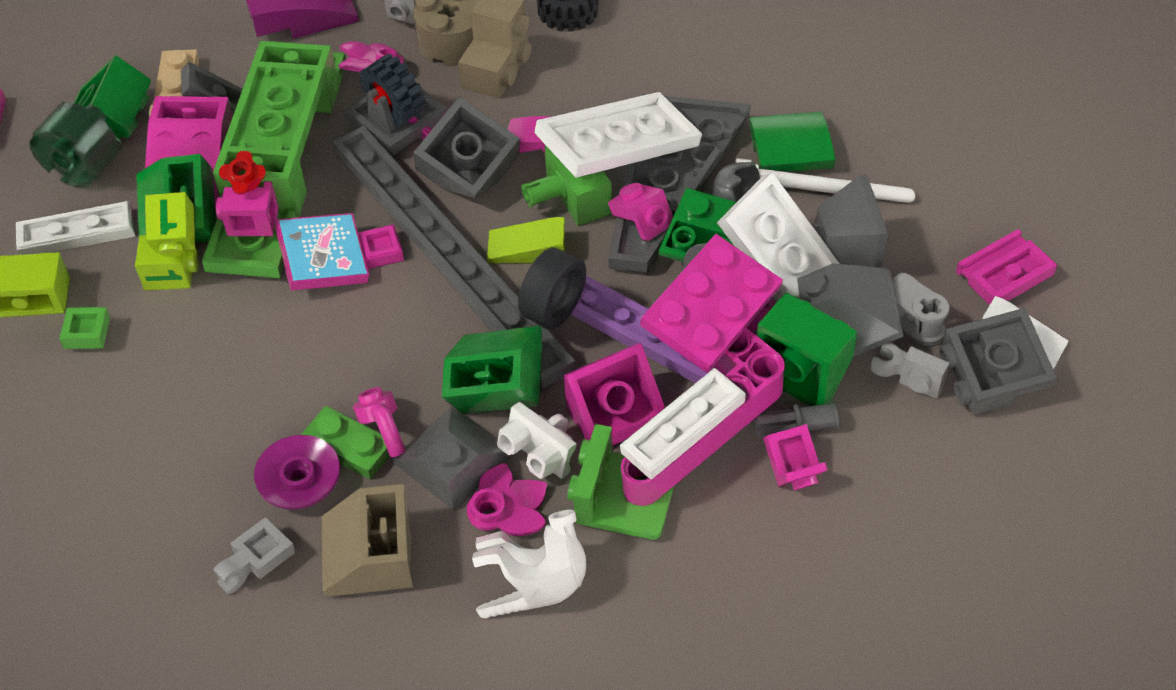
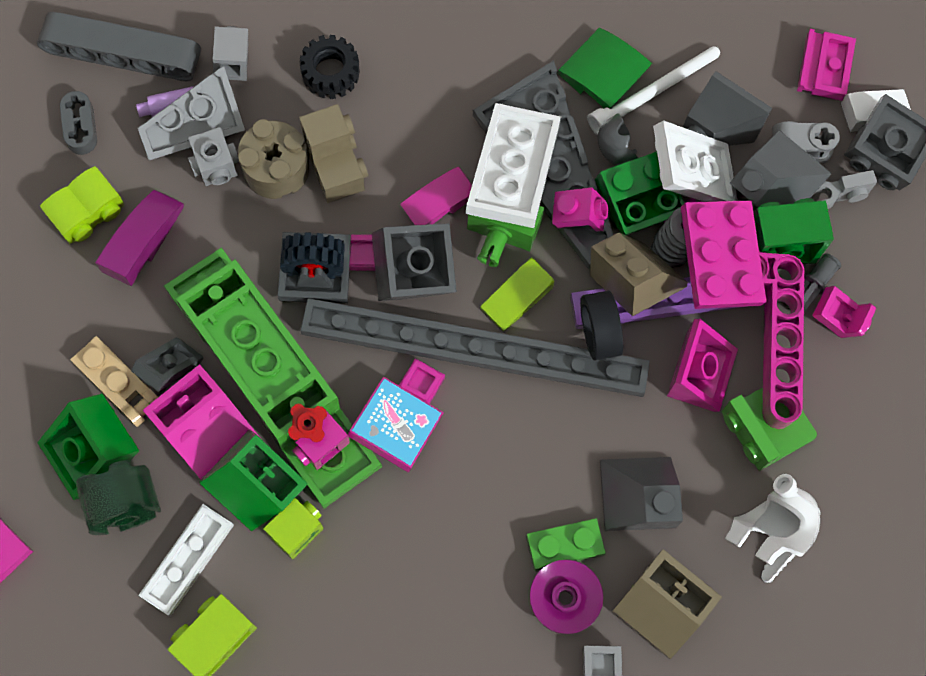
camera: 50 degrees left, 20 degrees up
(84, 328) = (296, 627): bright green plate -> none
(170, 223) = (294, 505): lime brick -> none
(363, 55) = (242, 234): dark pink plate -> none
(378, 407) = (564, 506): dark pink plate -> none
(494, 370) = (615, 412): green slope -> none
(512, 500) = (709, 490): dark pink plate -> none
(542, 439) = (688, 433): white hips -> none
(631, 276) = (633, 273): none -> dark tan slope
(682, 423) = (785, 355): white tile -> none

